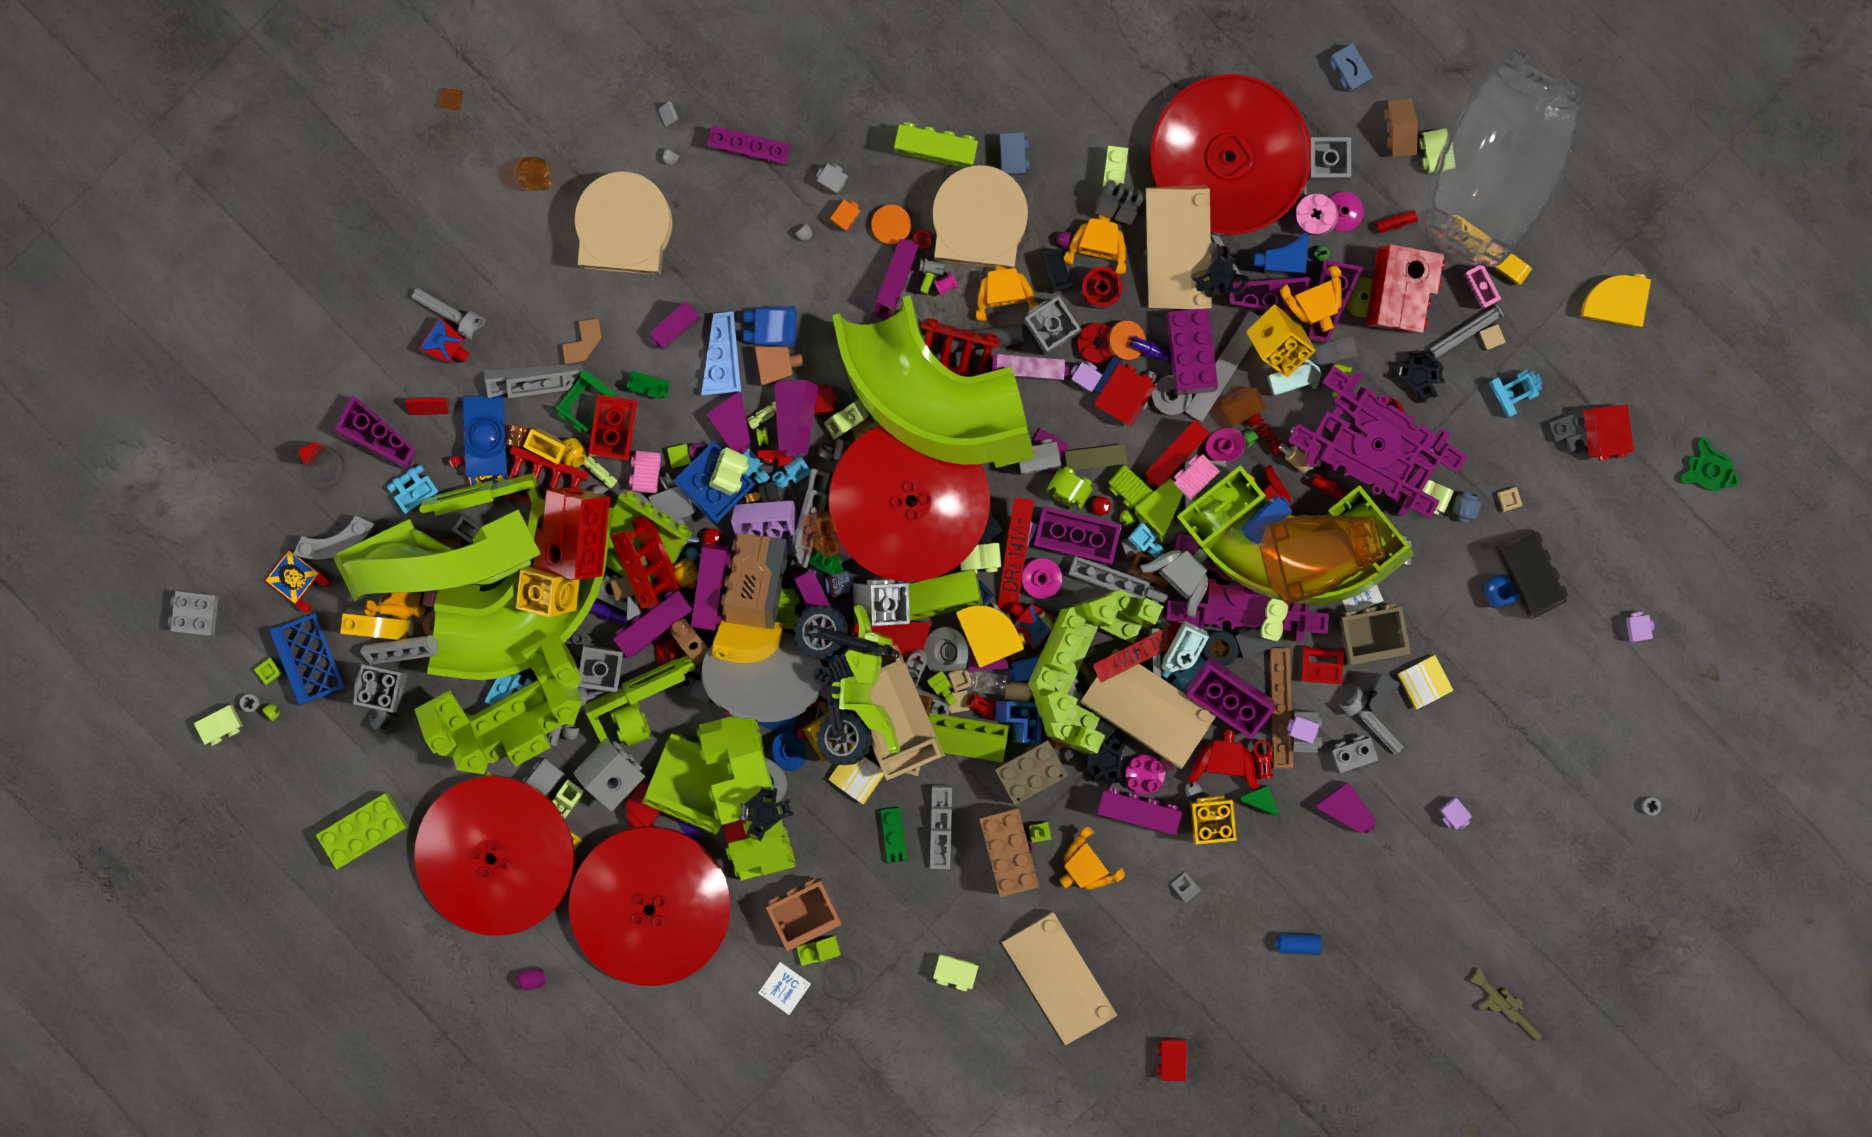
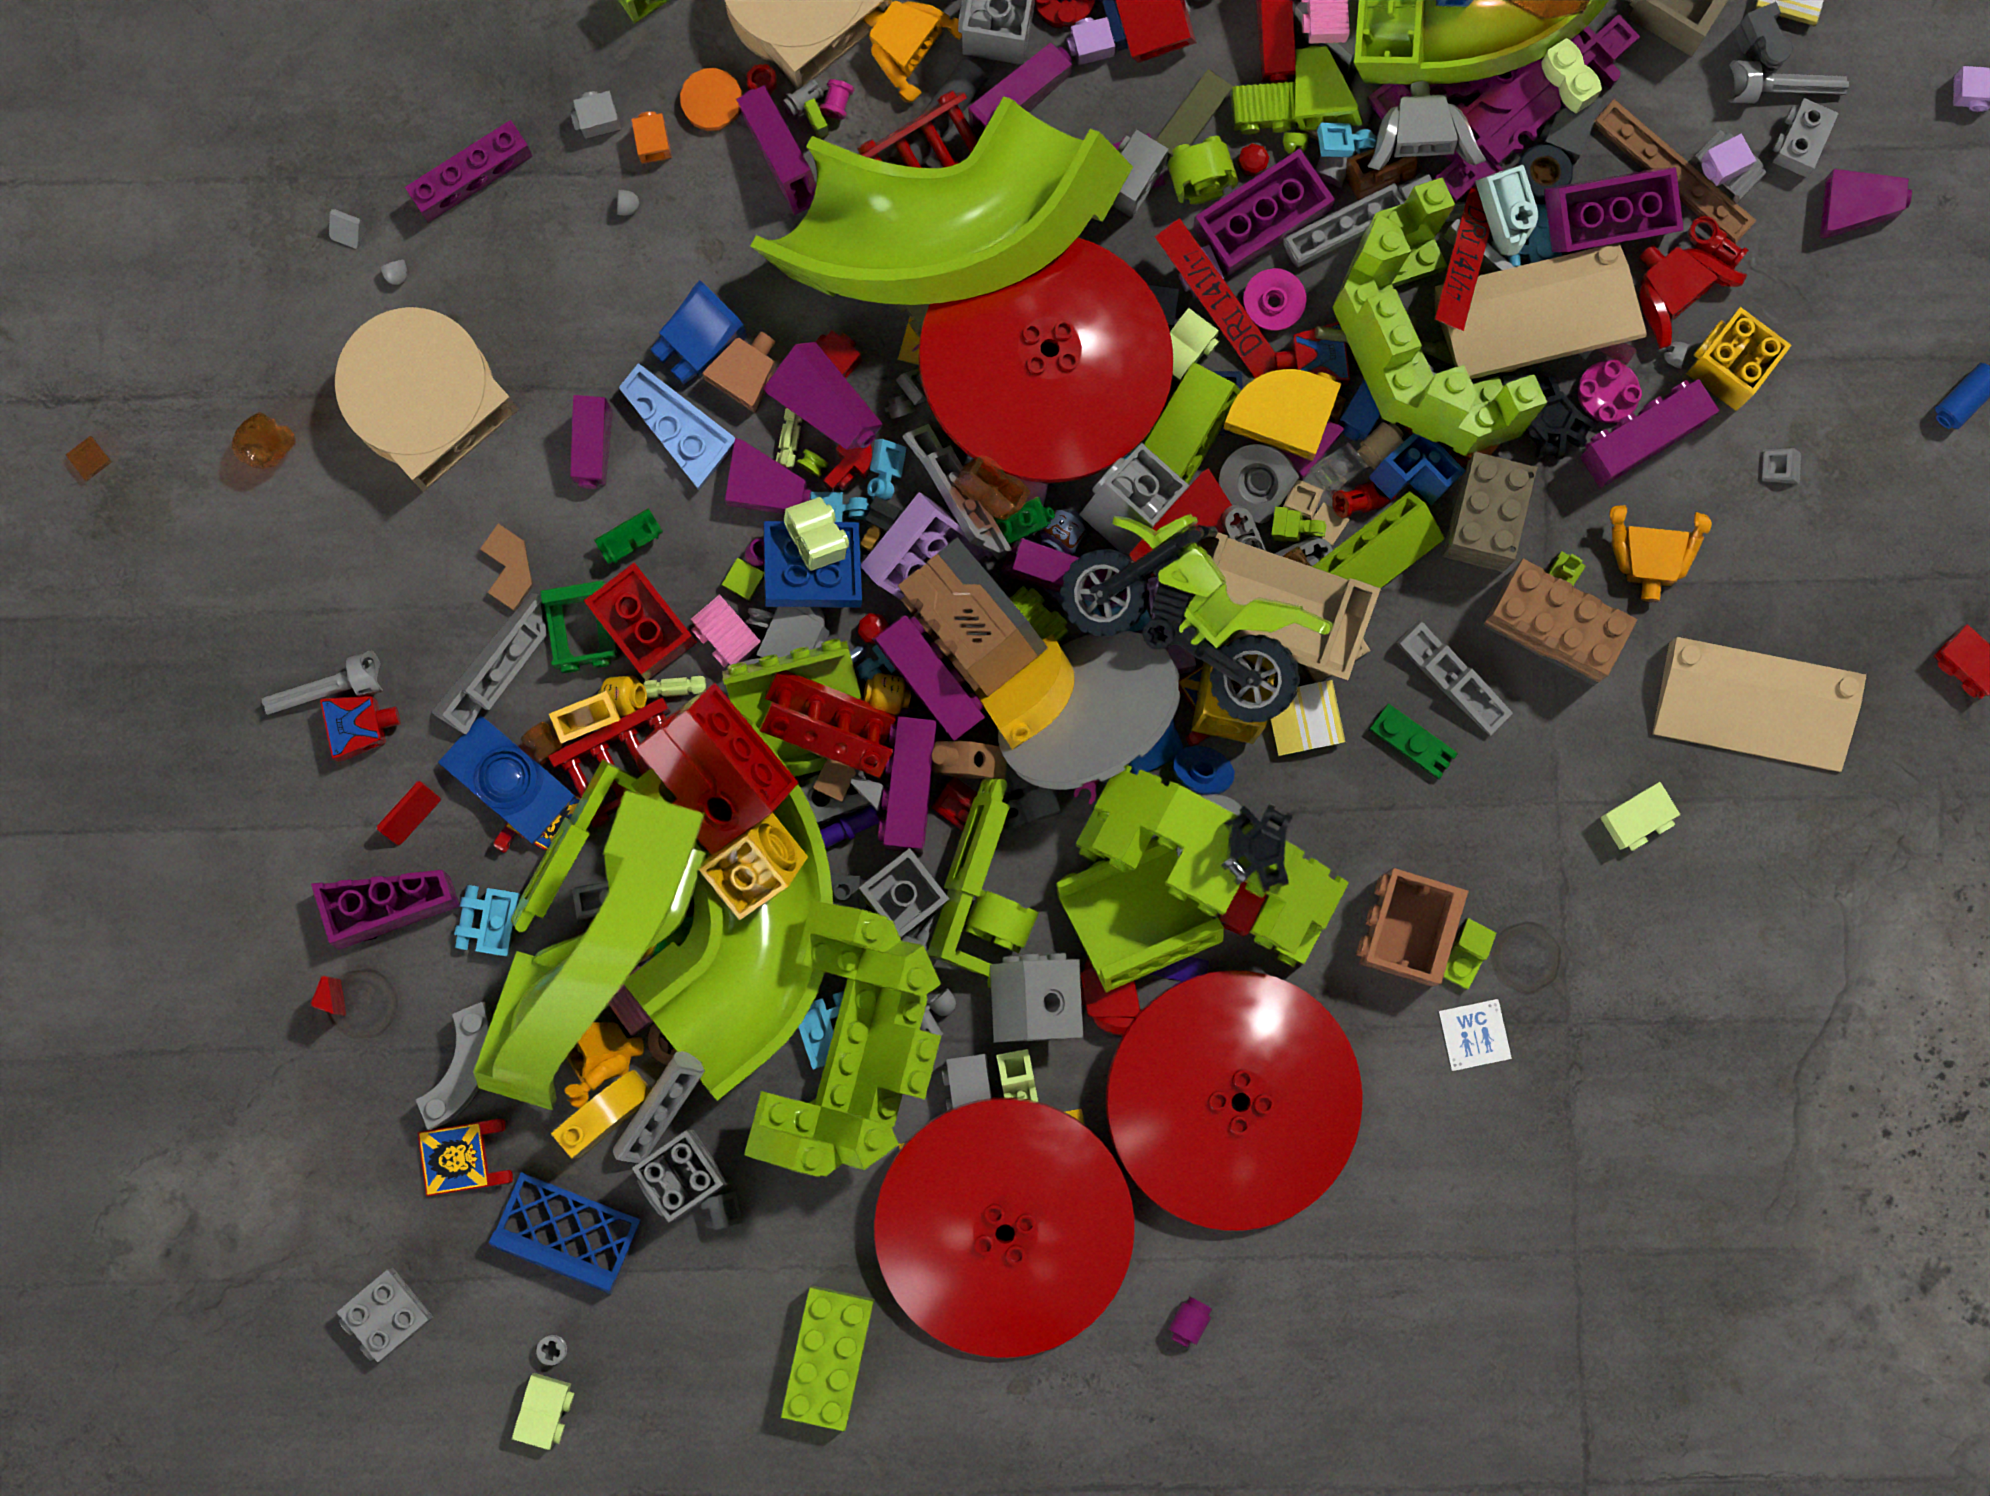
camera: 50 degrees left, 5 degrees down
(268, 671) = (536, 1292): lime tile -> none
(271, 711) = (587, 1333): lime hinge -> none
(846, 419) = (884, 347): yellowish green brick -> none
(1261, 799) = (1762, 286): green slope -> none
(1322, 672) = (1675, 88): red plate -> none

